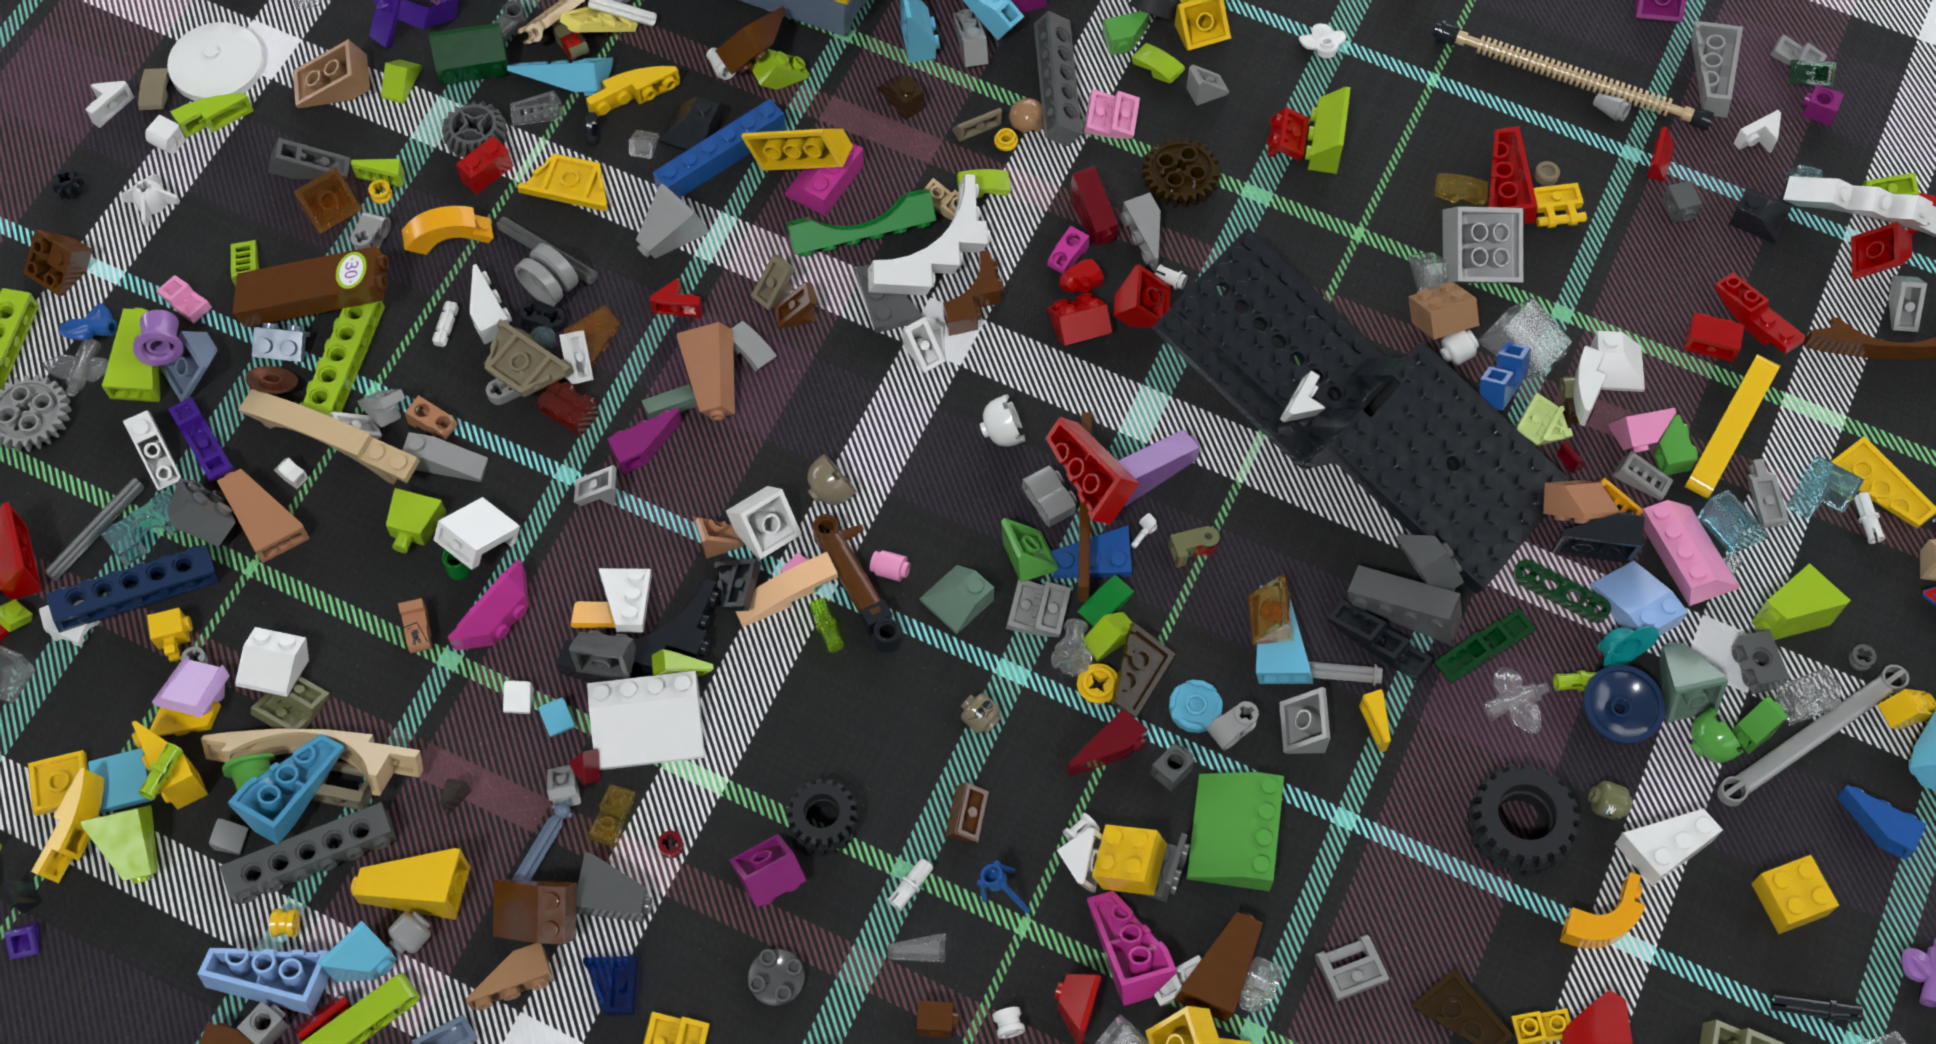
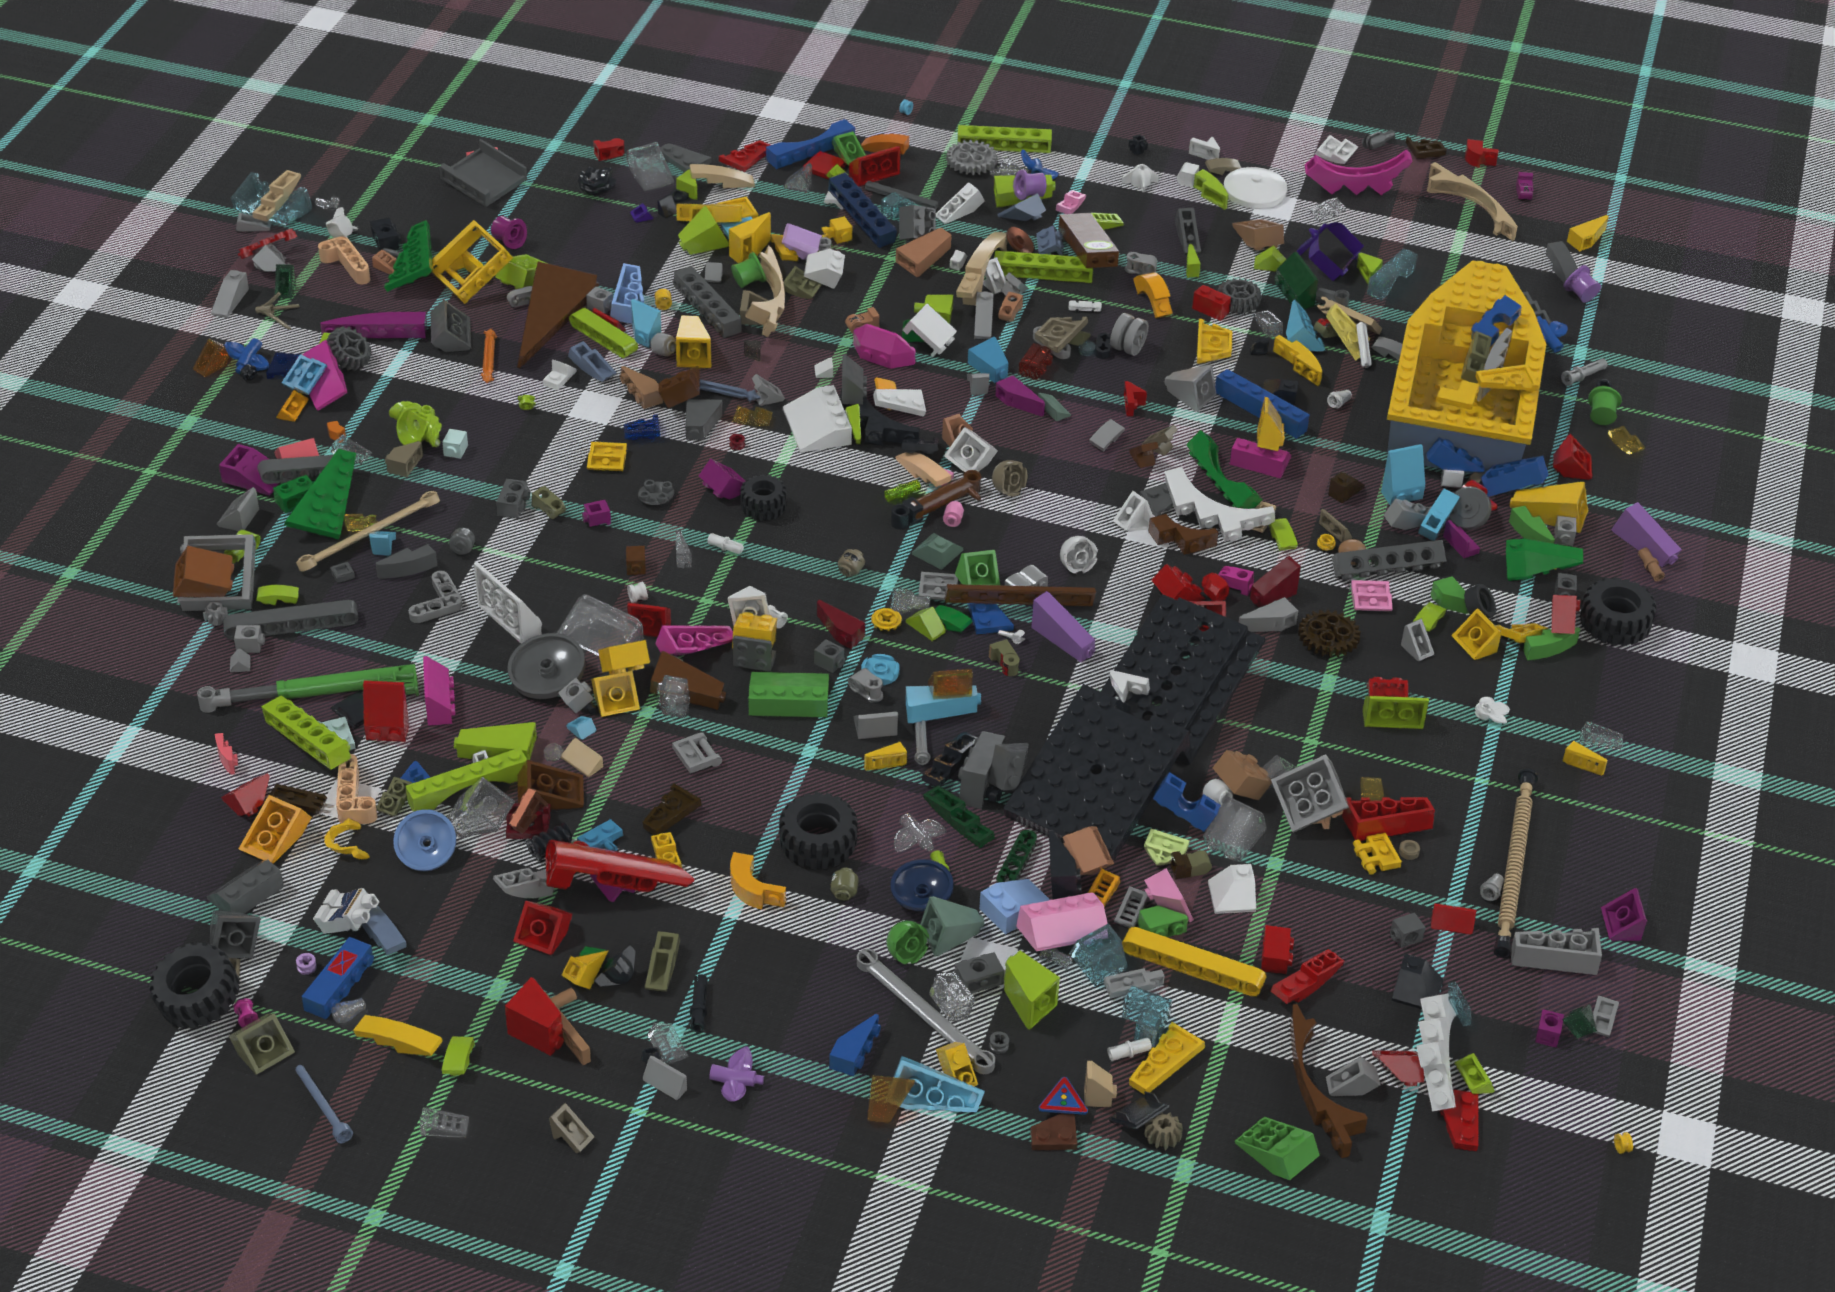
camera: 80 degrees right, 20 degrees down
(56, 261) = (1080, 149): reddish brown slope -> none
(160, 771) = (727, 220): lime pin -> none
(200, 439) = (972, 225): dark purple slope -> none
(281, 795) = (733, 275): dark azure wedge -> none
(327, 200) = (1161, 242): clear orange slope -> none
(381, 198) = (1178, 266): yellow bush -> none
(485, 306) = (1102, 317): white slope -> none
(531, 241) = (1155, 341): dark grey axle -> none
(552, 464) = (990, 359): none -> dark azure slope
(556, 717) = (813, 382): medium azure slope -> none
(576, 356) = (1071, 356): white slope -> none
(586, 767) = (780, 398): dark red slope -> none
(598, 330) = (1097, 368): clear orange wing -> none
(643, 144) = (1258, 372): clear slope -> none
(710, 368) = (1078, 415): nougat slope -> none
(750, 42) = (1353, 397): reddish brown slope -> none
(779, 70) = (1343, 424): lime slope -> none
(967, 813) = (780, 567): reddish brown slope -> none
(995, 879) = (727, 566): blue plant -> none
(1095, 473) = (1037, 578): red wedge -> none
(1140, 670) = (900, 636): dark brown wing -> none
(1570, 458) = (1137, 863): dark red slope -> none
(1587, 383) = (1194, 853): white slope -> none
(1625, 644) = (970, 888): teal piece -> none
(1668, 844) = (814, 916): white wedge -> none
(1759, 724) = (921, 967): bright green slope -> none
(1763, 131) = (1502, 984): white slope -> none
(1795, 894) = (785, 988): yellow brick -> none

